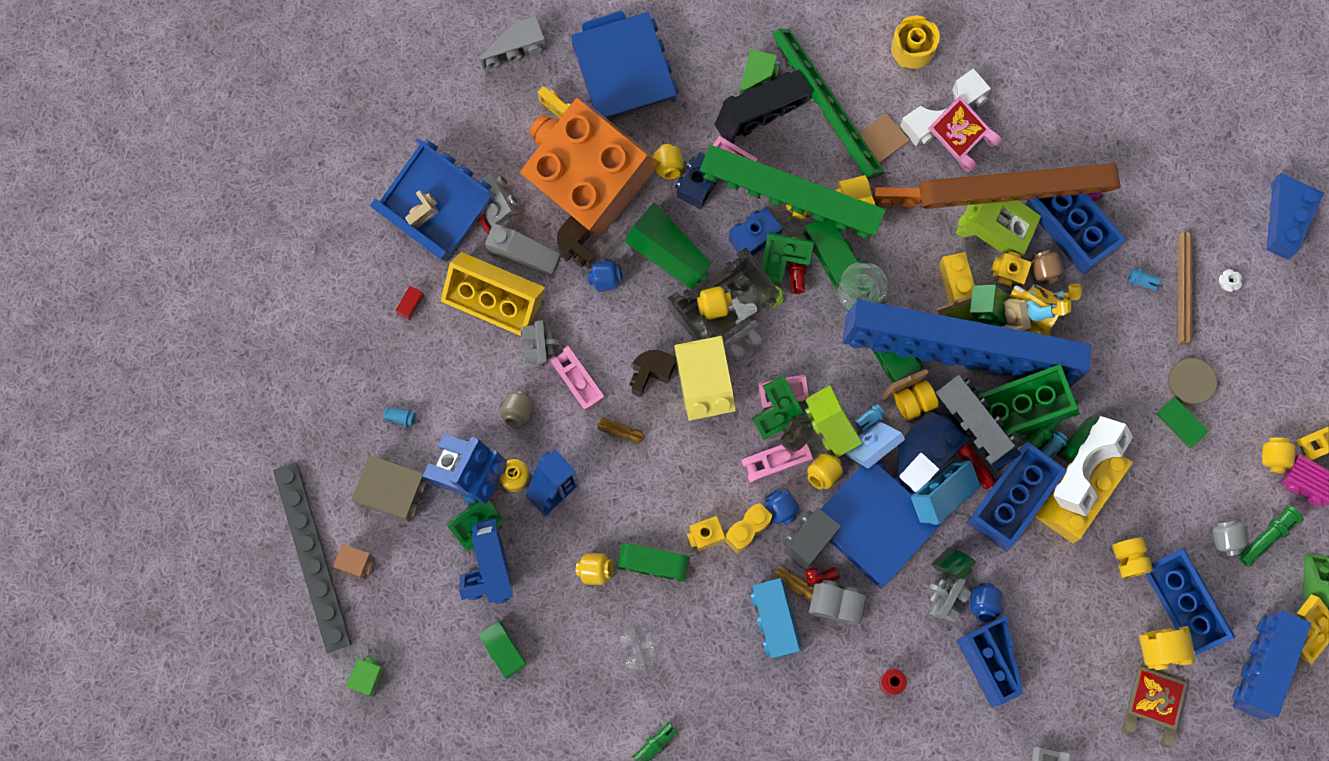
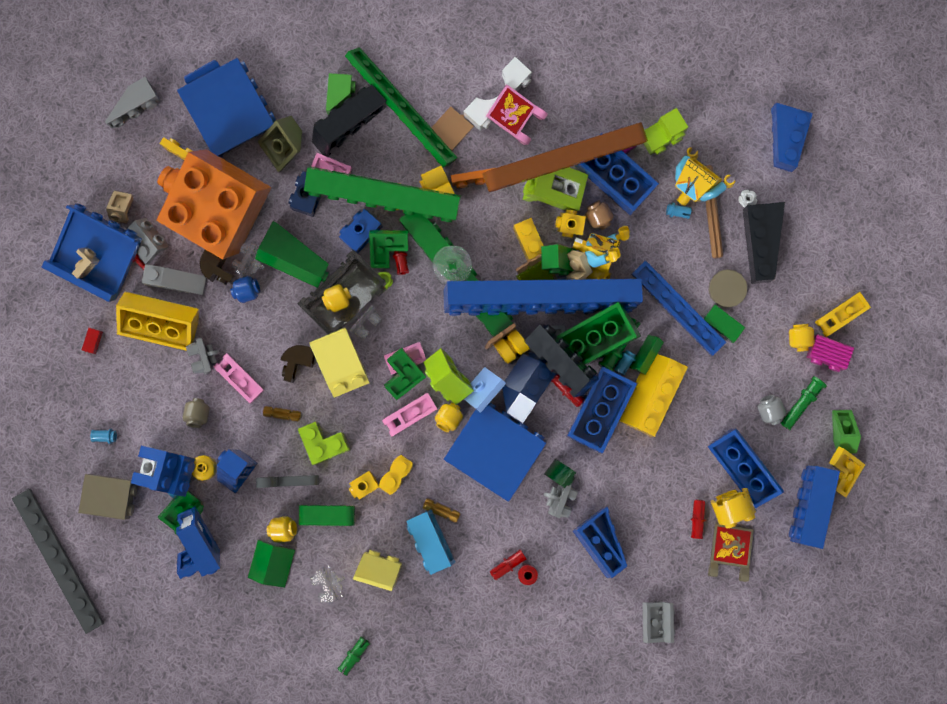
camera: 10 degrees left, 10 degrees up
(354, 562) = (91, 560): nougat brick -> none
(365, 676) = (120, 647): bright green brick -> none
(474, 155) = (119, 206): none -> tan bracket
(502, 649) = (221, 606): green slope -> none
(572, 609) = (271, 564): none -> green slope
(593, 505) = (265, 482): none -> dark grey beam
(664, 480) = (321, 448): none -> lime brick
(671, 161) = (280, 182): yellow head -> none
(680, 116) = (282, 142): none -> olive slope
(707, 640) = (378, 570): none -> light yellow slope
(781, 506) = (419, 452): blue head -> none
(796, 439) = (418, 397): clear smoke gear -> none
(809, 541) = (445, 476): dark grey brick -> none
(815, 578) = (460, 502): red arm -> none
(837, 603) = (475, 521): light grey brick -> none
(869, 667) = (507, 565): none -> red axle
(870, 417) = (477, 366): dark azure pin -> none
(915, 42) = (460, 51): yellow brick -> none
(945, 492) = (544, 419): dark azure brick -> none
(986, 602) = (590, 497): blue head -> none
(1106, 440) = (663, 355): white arch -> none
(1118, 656) = (698, 519): none -> red axle
(1131, 396) = (679, 308): none -> blue plate
(1132, 557) = (698, 441): yellow wheel -> none
(1142, 184) = (667, 130): none -> lime brick
(1173, 247) = (697, 180): none -> torso
(1244, 330) = (763, 237): none -> black wedge

